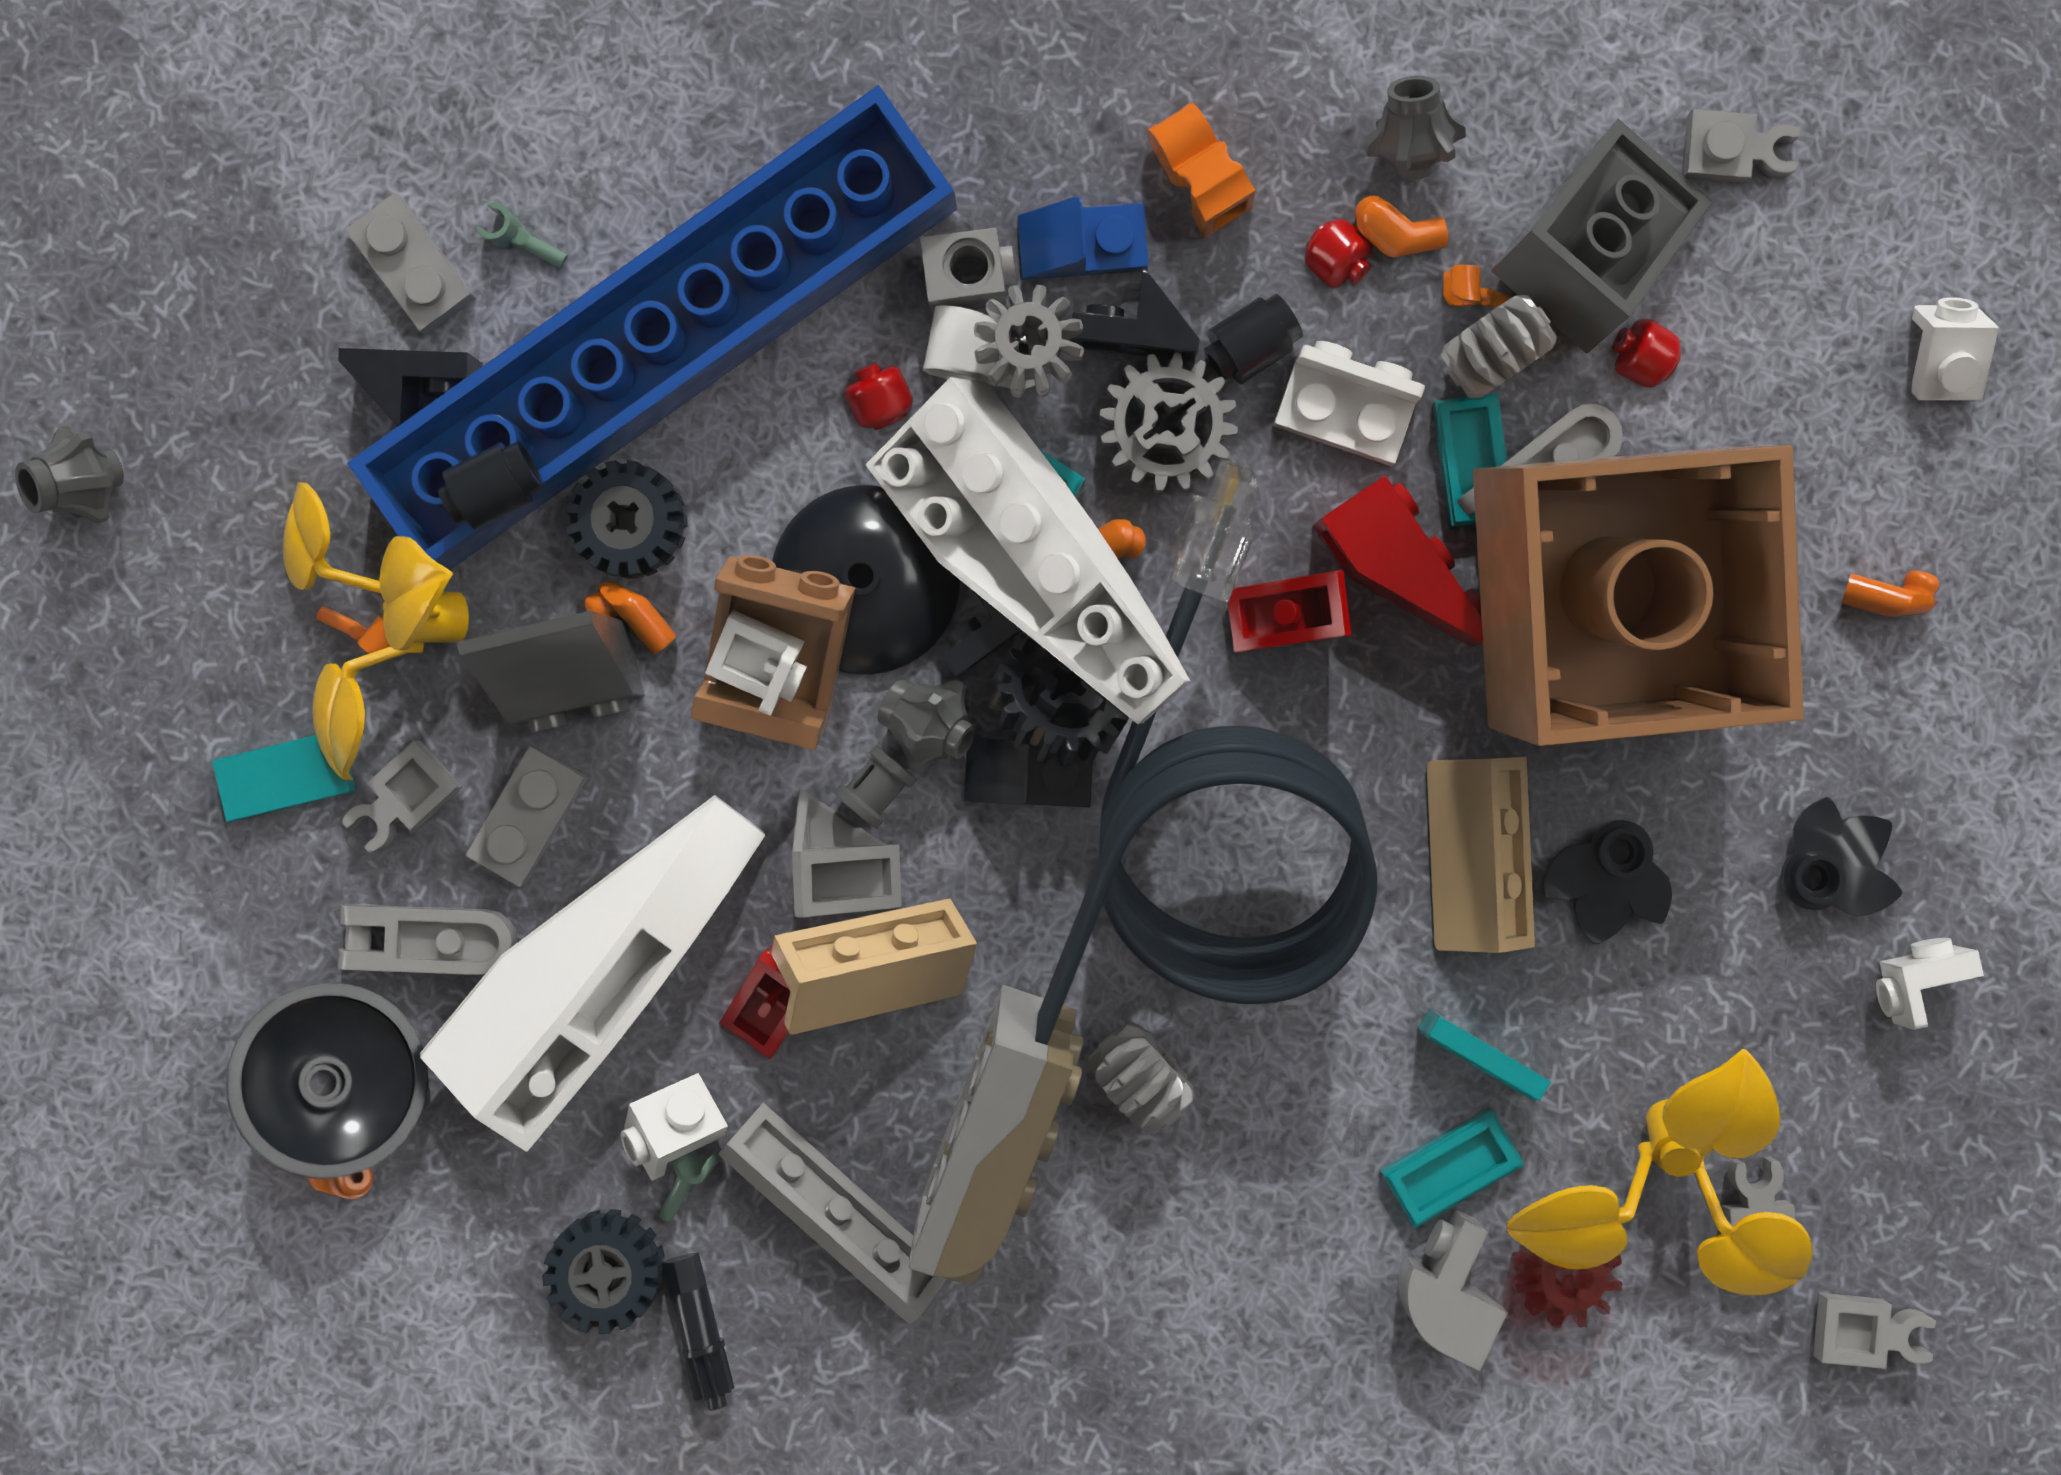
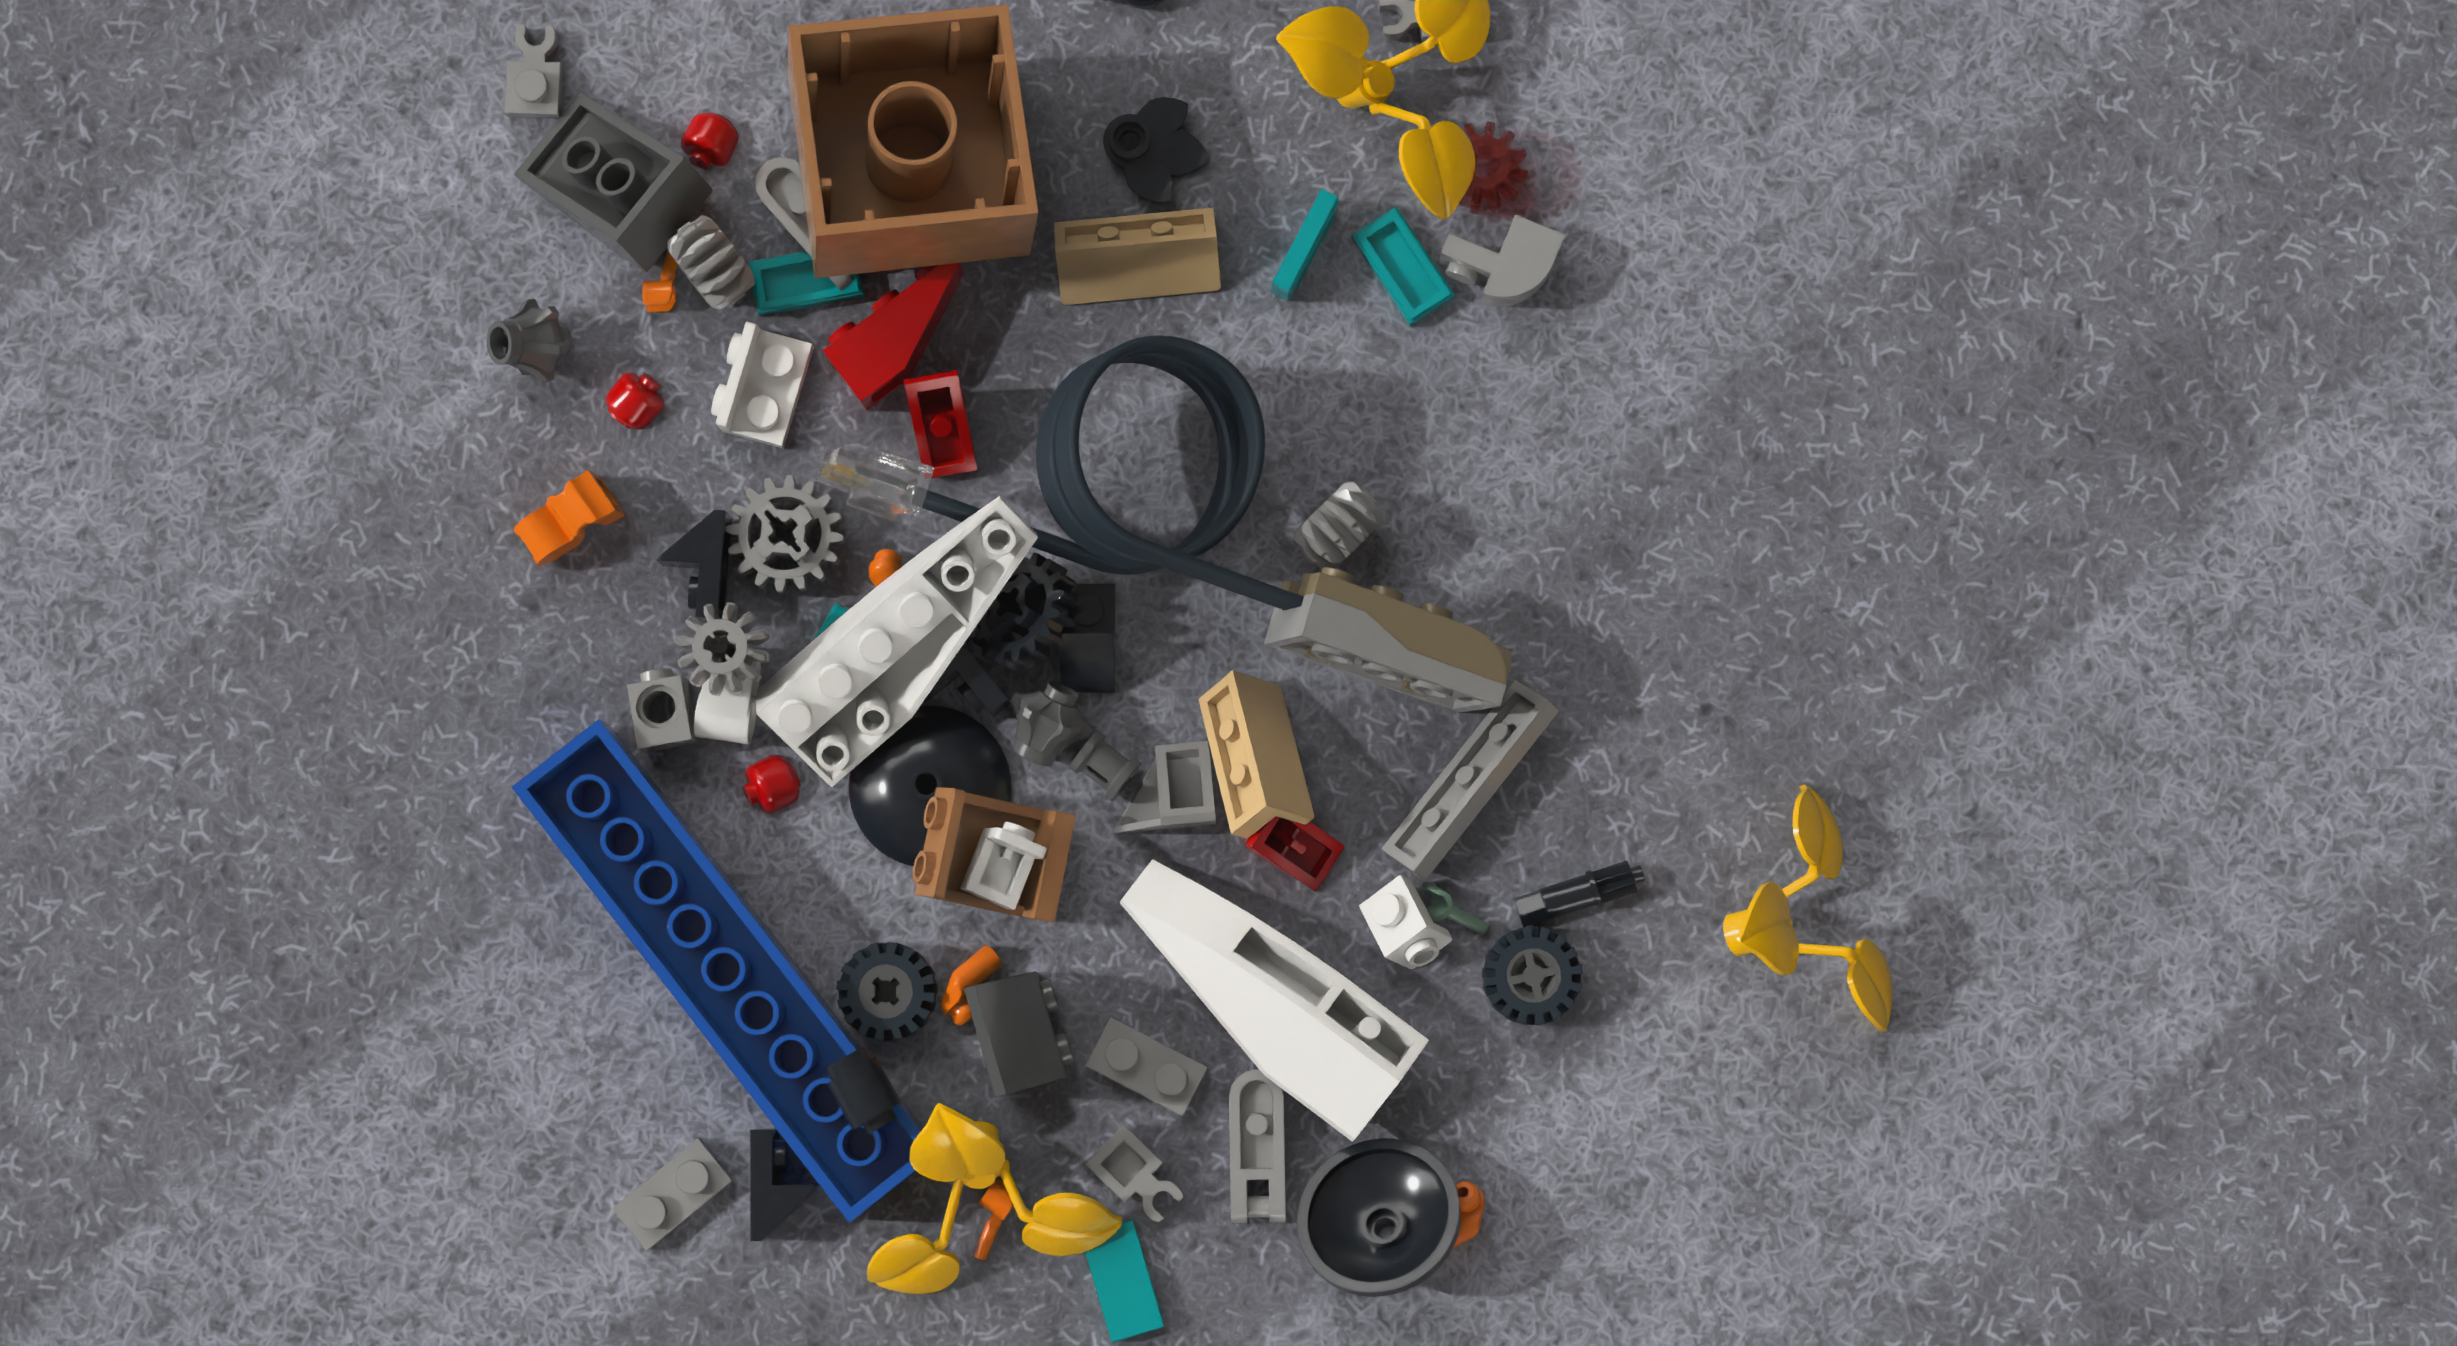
camera: 95 degrees left, 5 degrees down
(514, 235) = (647, 1099): sand green hand -> none
(1082, 240) = (632, 616): blue slope -> none
(1252, 339) = (711, 467): black brick -> none
(1395, 233) = (616, 354): orange arm -> none

